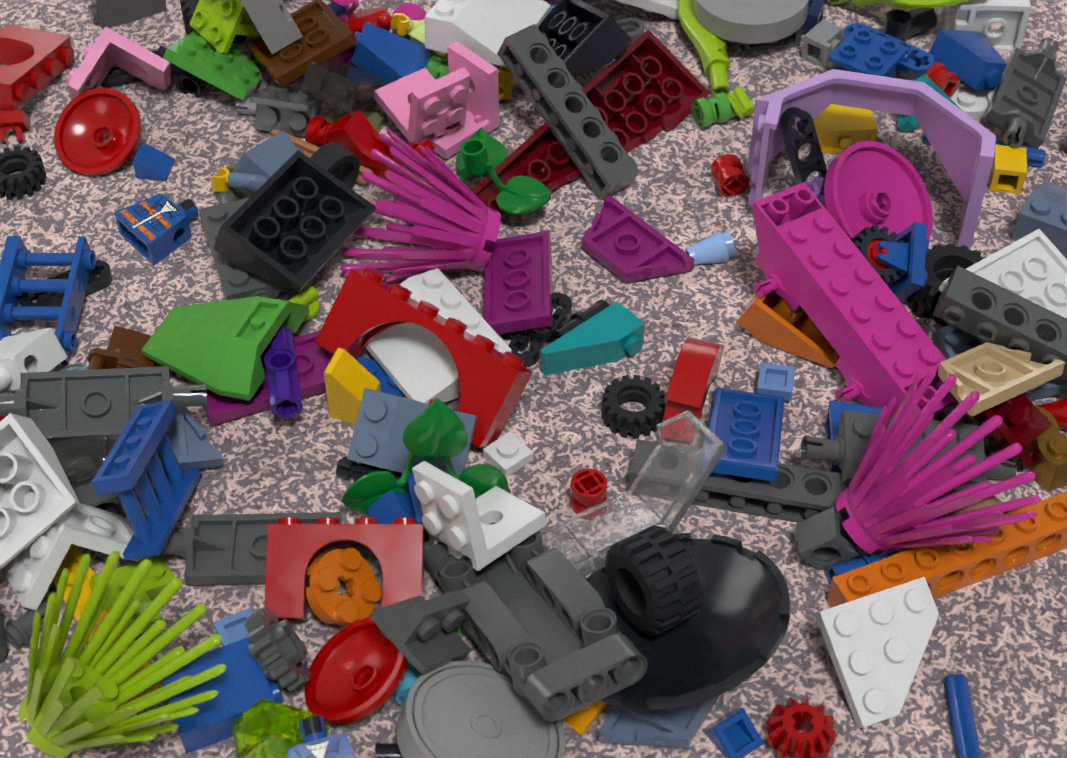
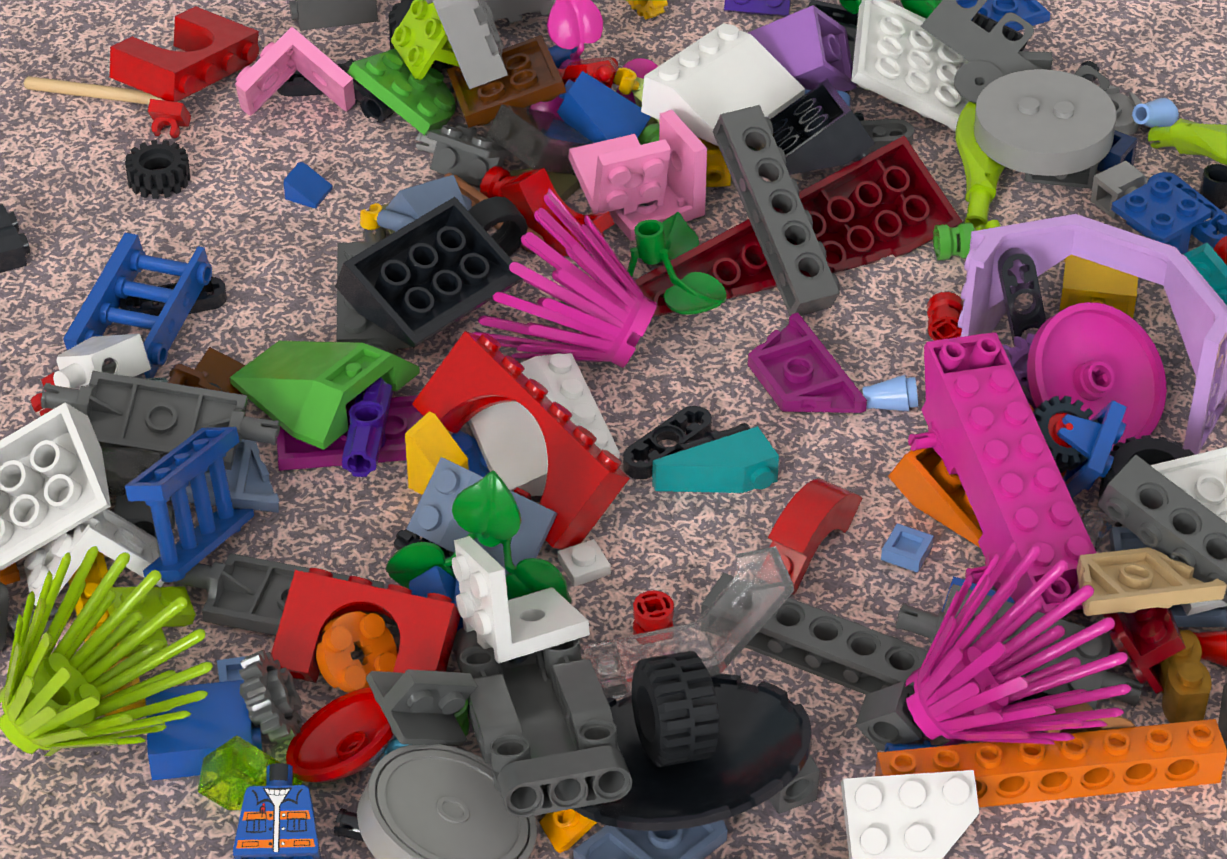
camera: 15 degrees right, 5 degrees down
(87, 124) = (255, 140): red dish -> none
(156, 226) = (288, 253): blue torso -> none
(308, 298) = (426, 361): lime plate -> none
(519, 283) = (658, 387): magenta plate -> none
(633, 391) = (730, 525): black tyre -> none
(751, 433) = (845, 592): blue tile -> none

